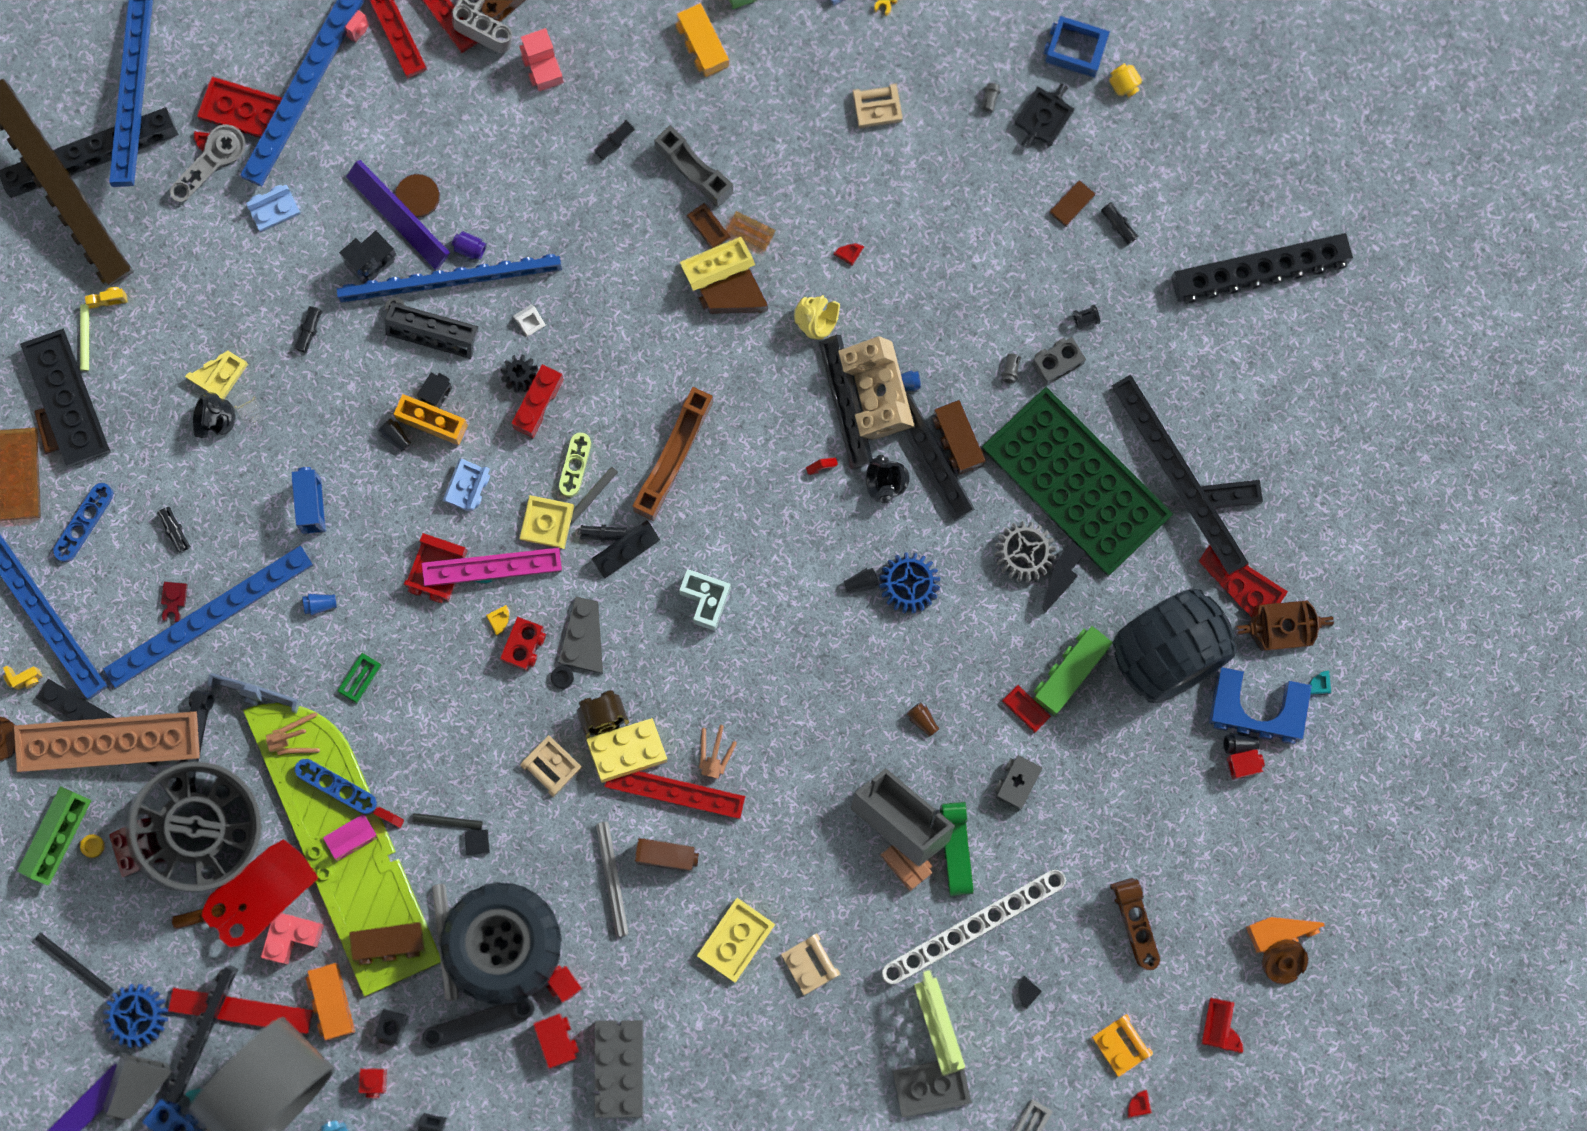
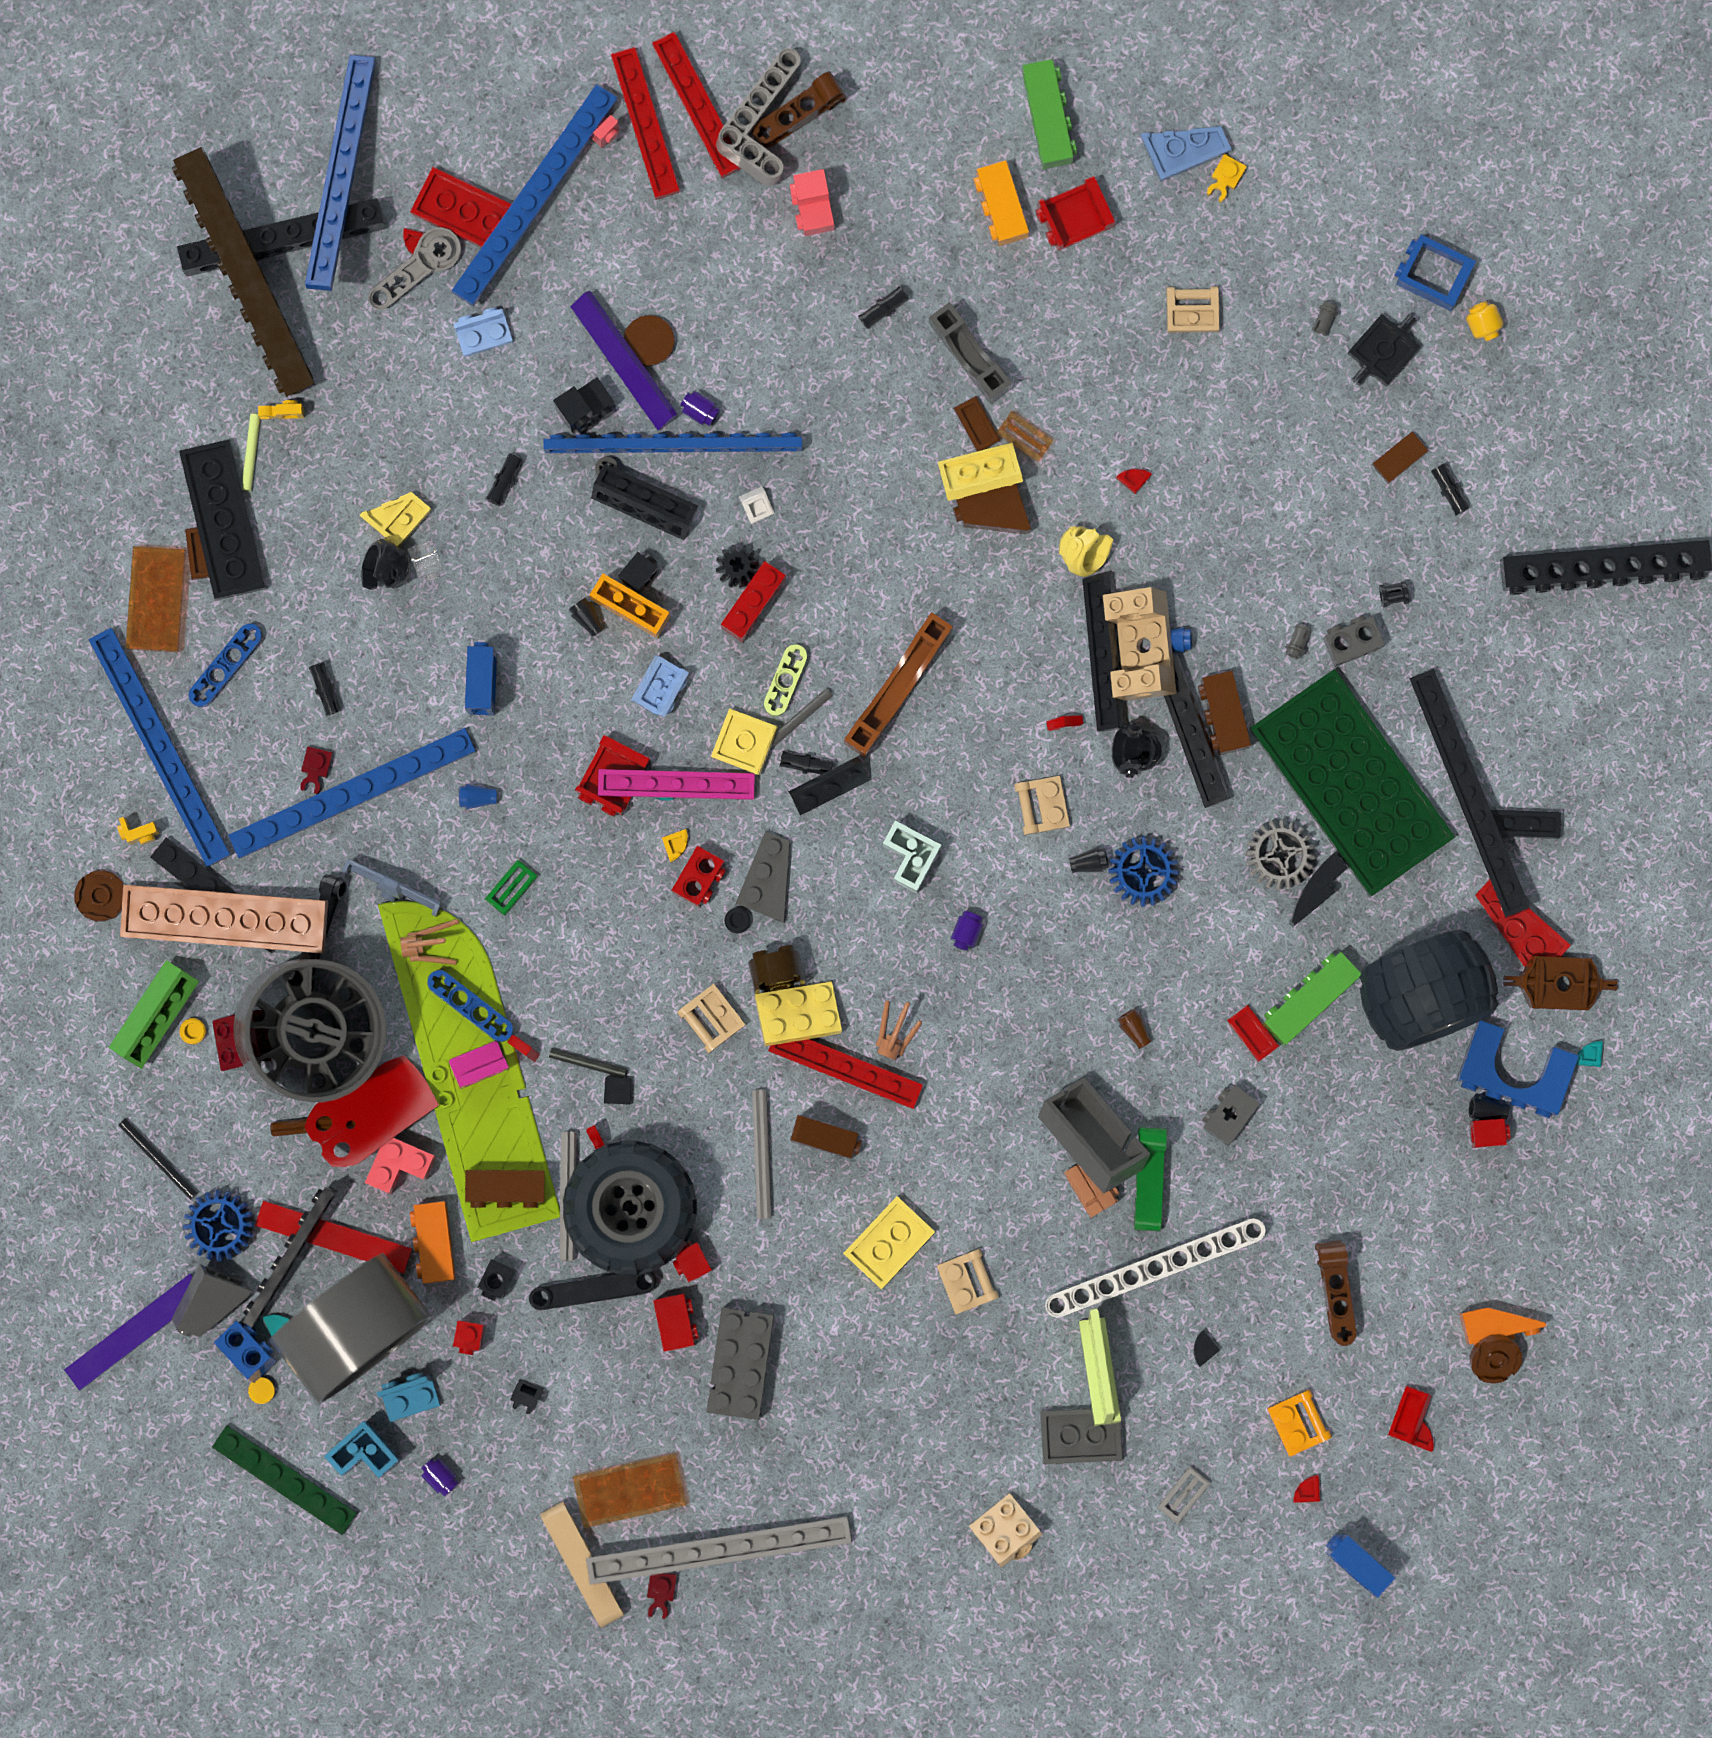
camera: 15 degrees right, 5 degrees up
(461, 884) = (595, 1137): none -> red tile
(764, 656) = (967, 931): none -> dark purple brick
(766, 41) = (1075, 215): none -> red panel
(820, 537) = (1050, 802): none -> tan plate

